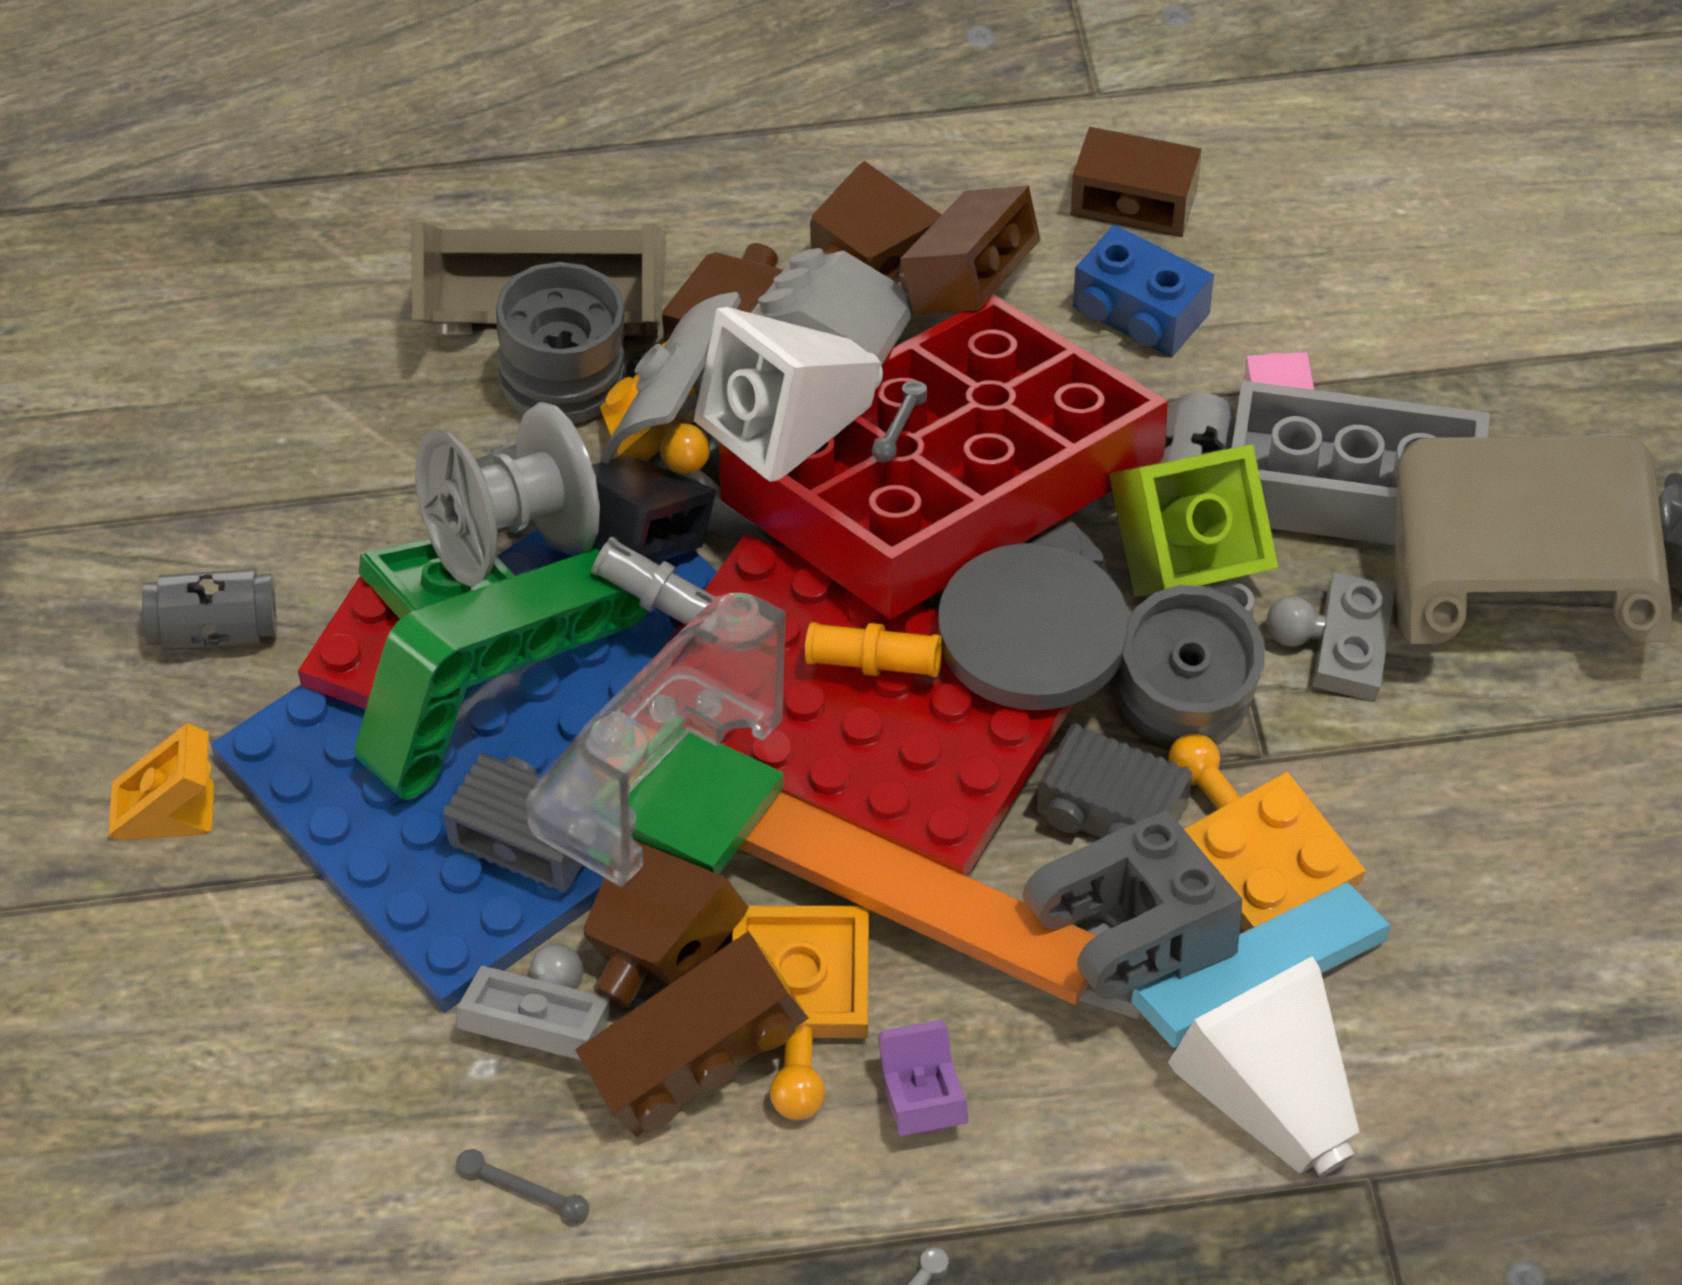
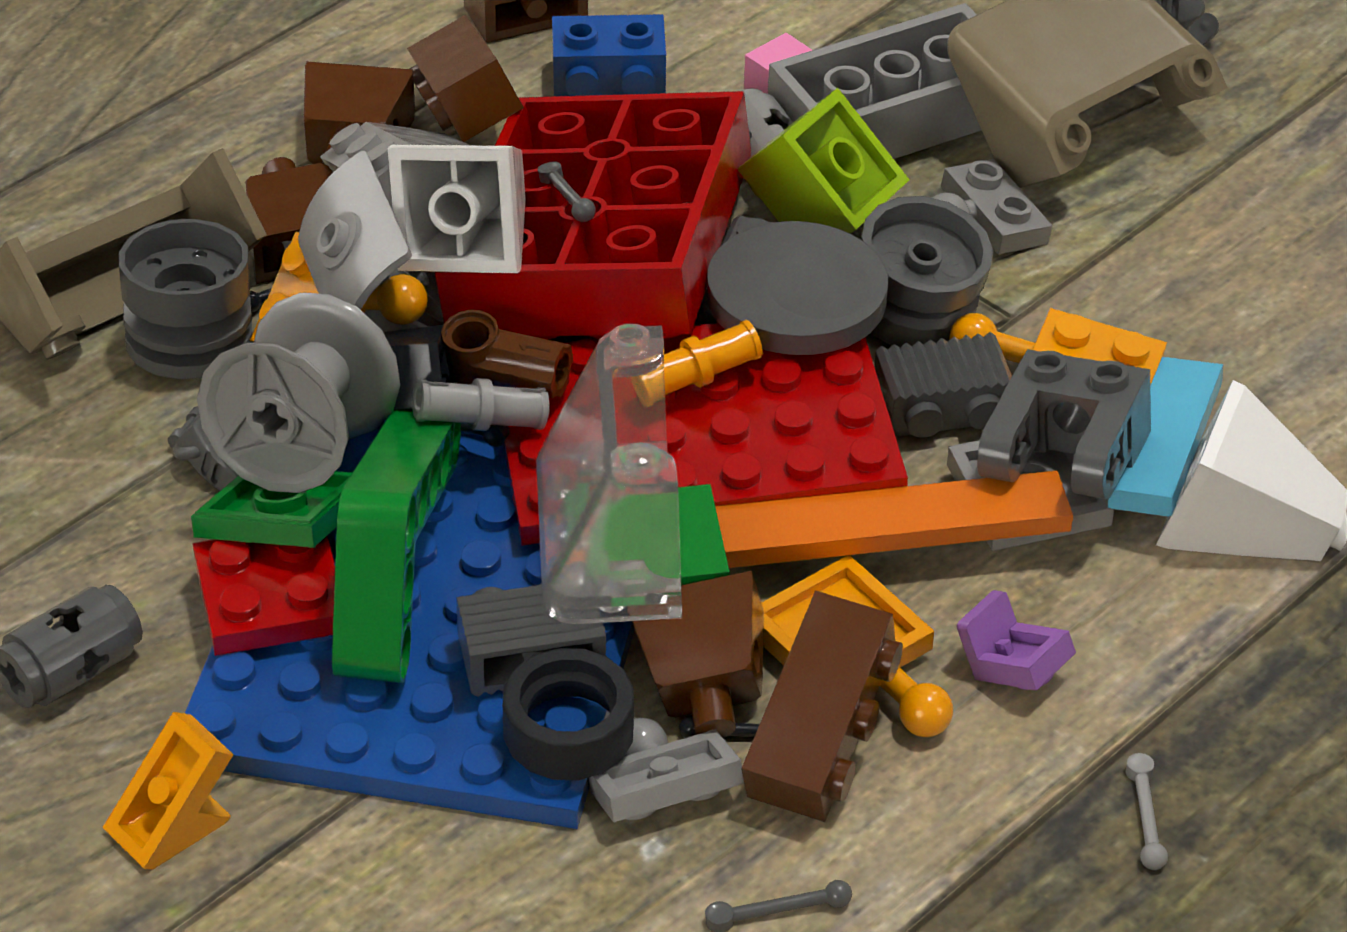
camera: 40 degrees left, 10 degrees down
(480, 868) = (568, 753): none -> black tyre
(721, 547) = (507, 358): none -> reddish brown piece

